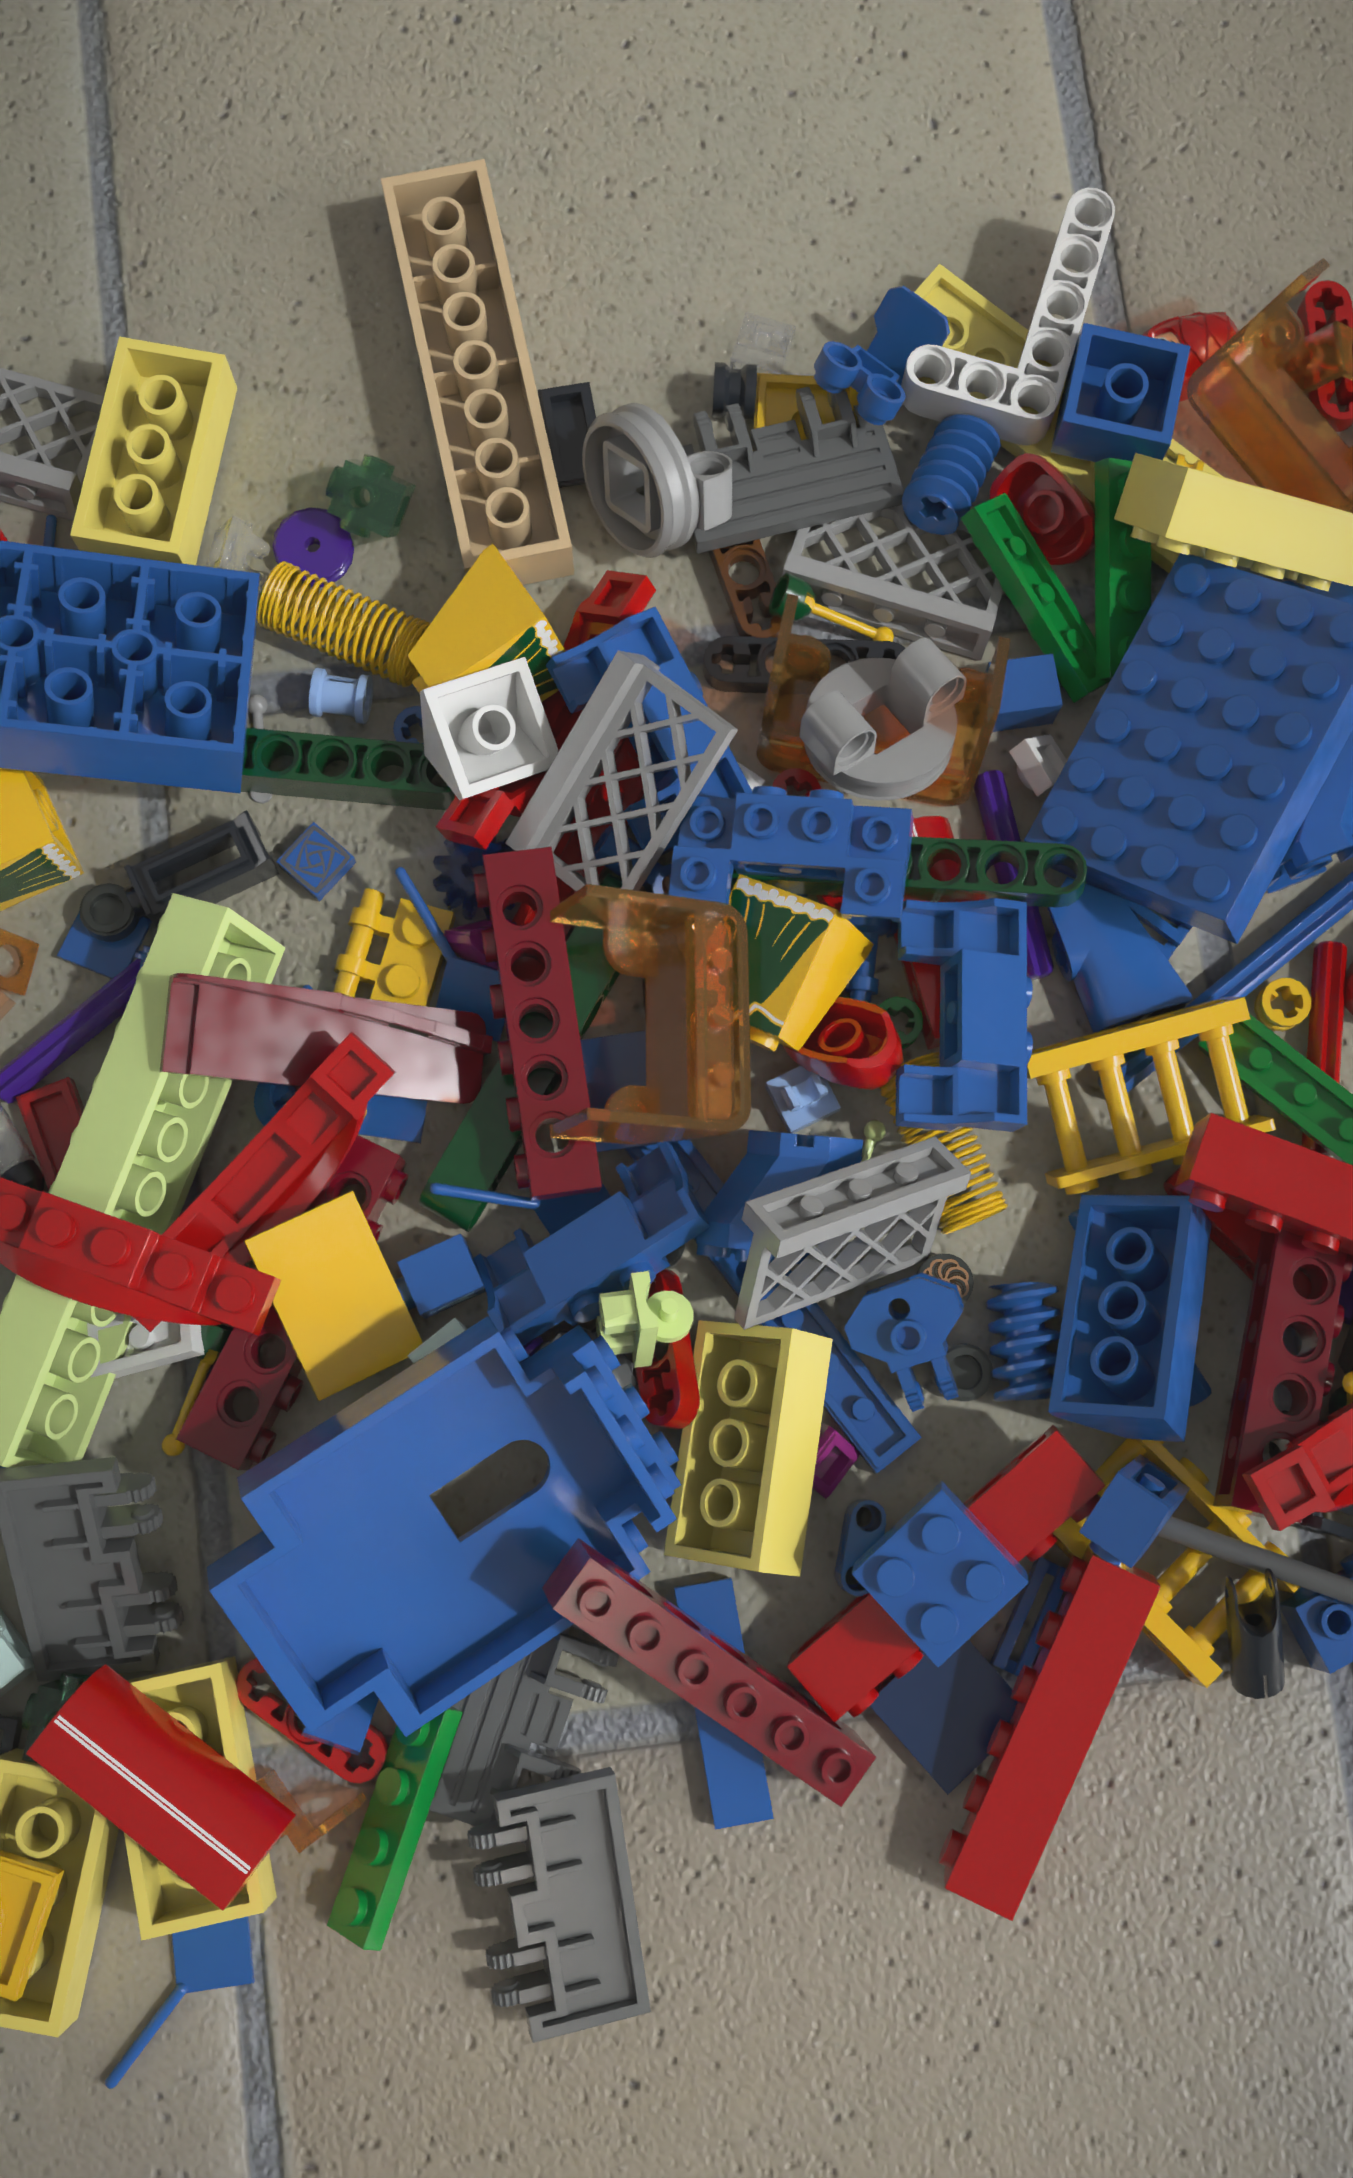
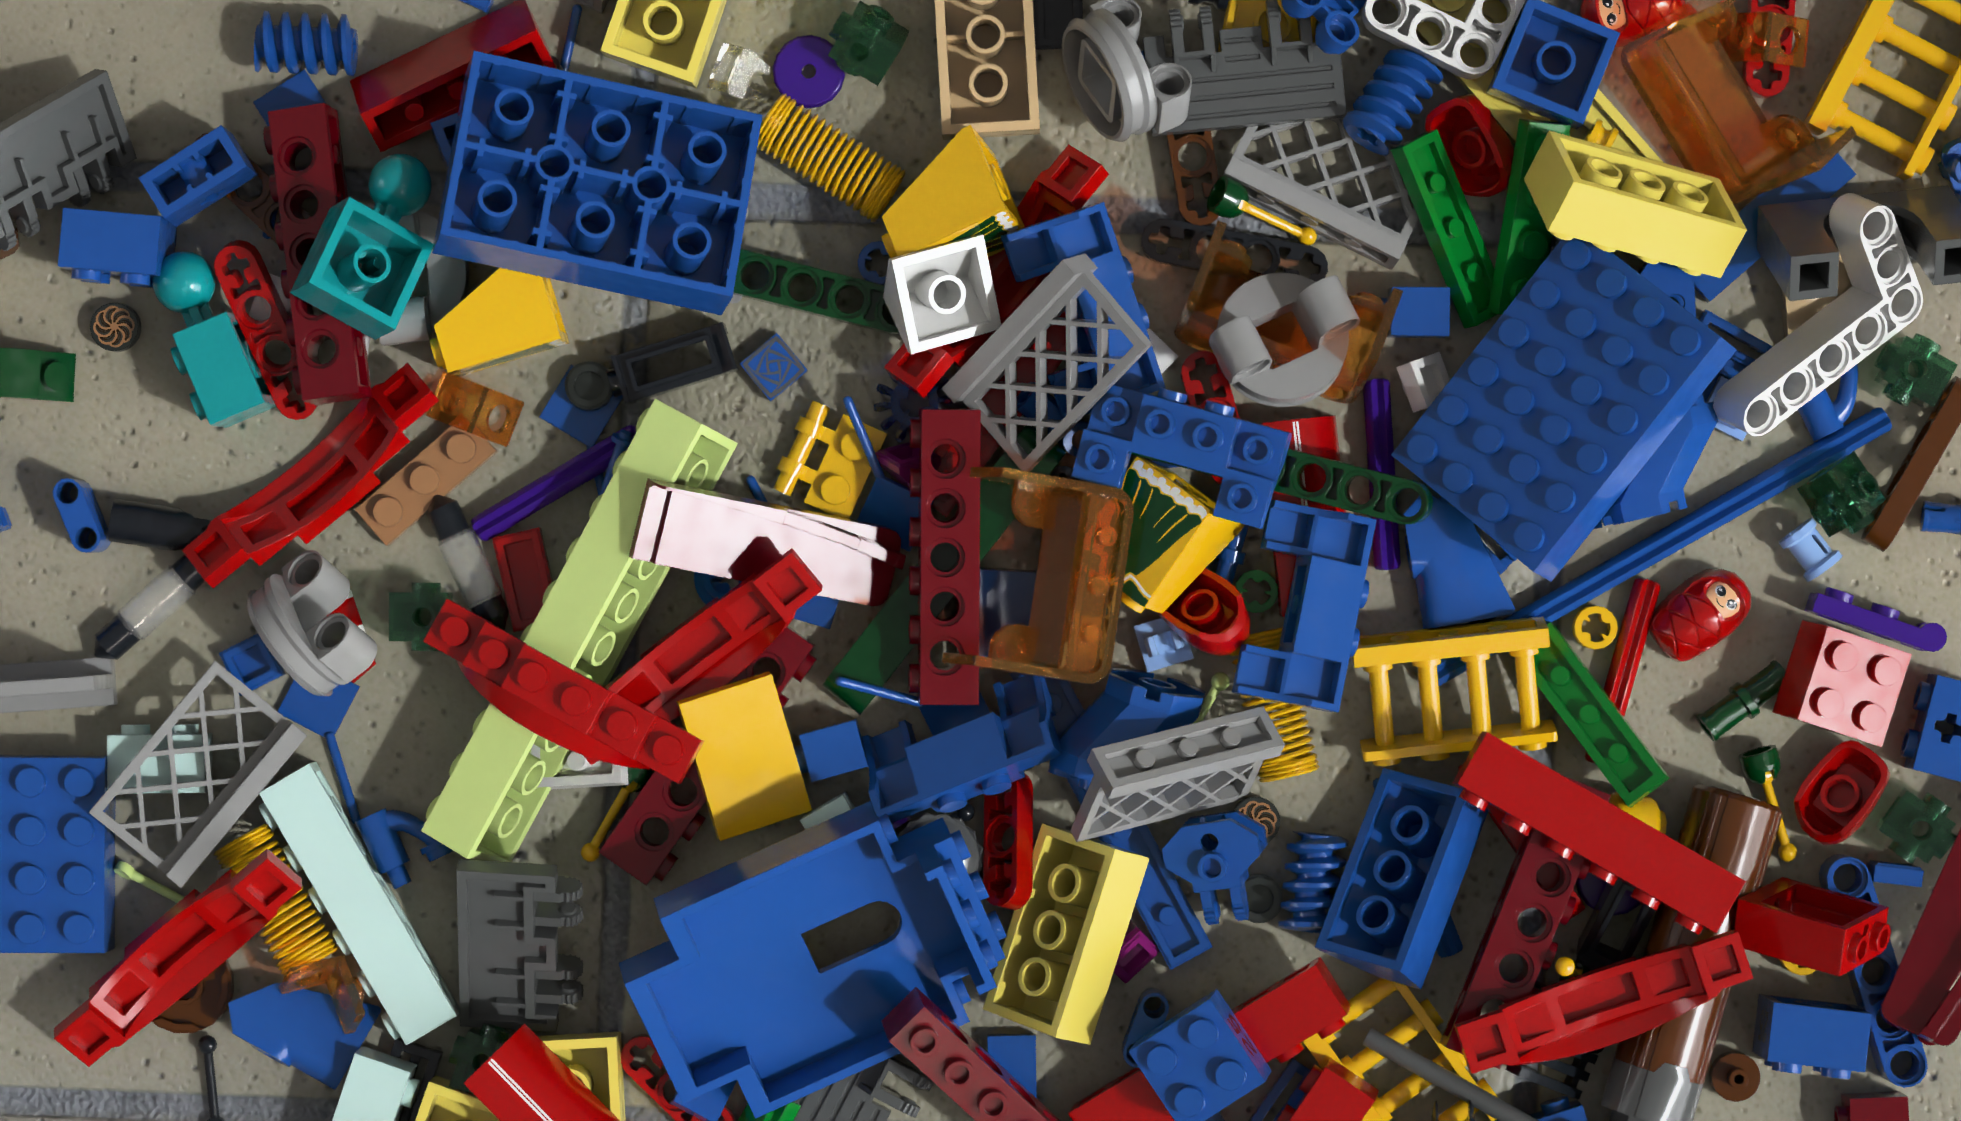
camera: 10 degrees right, 10 degrees up
(340, 695) = (816, 220): light blue bush -> none
(634, 1322) = (992, 821): yellowish green hips -> none
(1132, 1511) = (1369, 1036): blue slope -> none

